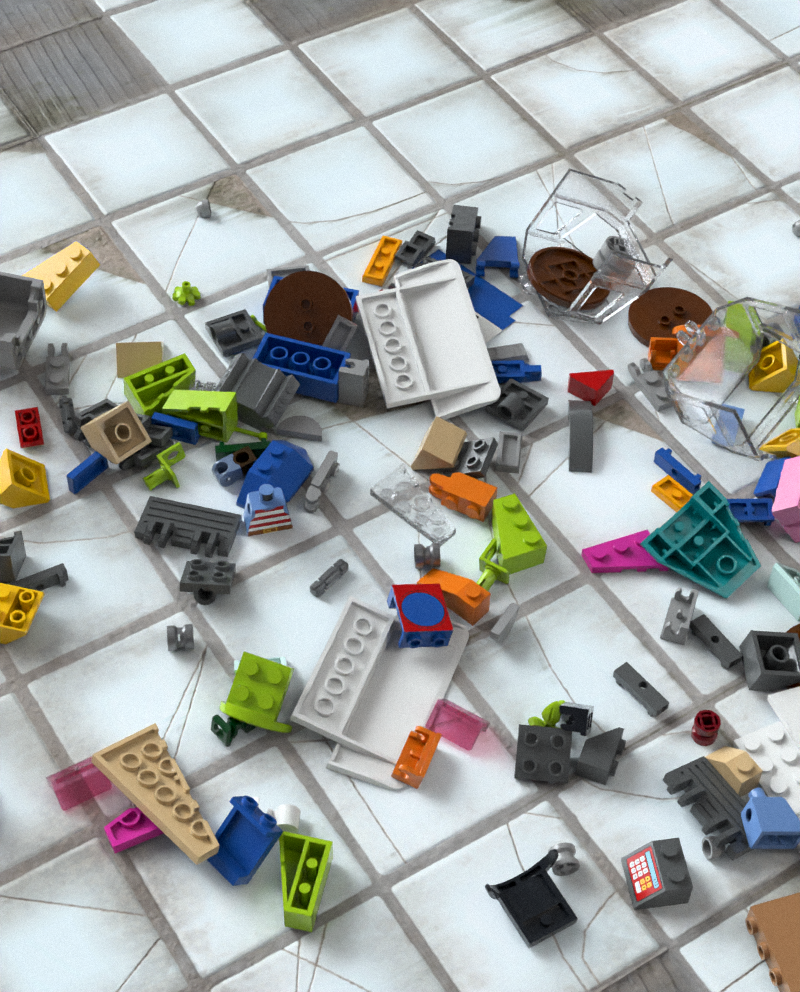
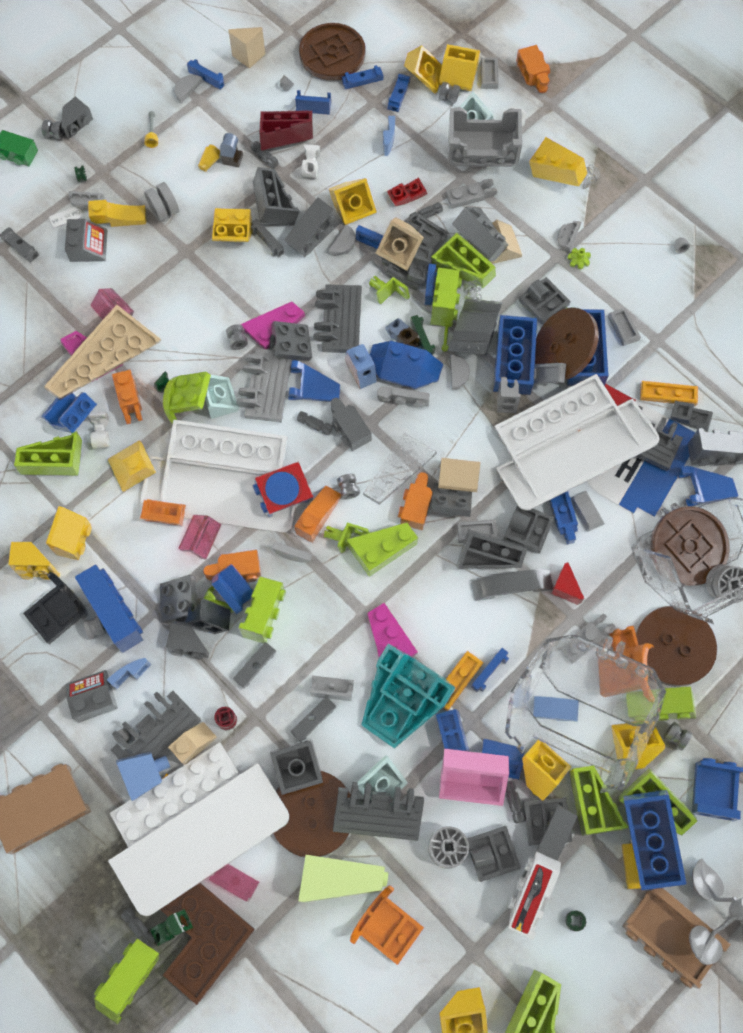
camera: 80 degrees right, 20 degrees up
(49, 524) = (313, 227): none -> dark grey wedge
(75, 503) = (344, 242): none -> light grey tile
(129, 359) = (480, 232): none -> dark grey wedge
(152, 297) = (568, 234): none -> light grey tile
(170, 604) = (260, 327): none -> dark pink wing
(233, 773) = (127, 394): none -> orange hinge
(260, 619) = (267, 388): none -> light grey hinge
(275, 570) = (313, 384): none -> blue flag
(337, 784) = (131, 465): none -> yellow slope
(343, 540) = (350, 425): none -> dark grey hinge
(426, 870) = (68, 534): none -> yellow slope
(460, 916) = (29, 561): none -> yellow slope
(510, 687) = (245, 562): none -> orange hinge
(534, 828) = (110, 610): none -> blue brick
(541, 689) = (232, 588): none -> blue panel
(543, 438) = (489, 552): none -> dark grey wedge
(575, 665) = (263, 610): none -> lime wedge
(629, 821) = (135, 668): none -> medium blue slope

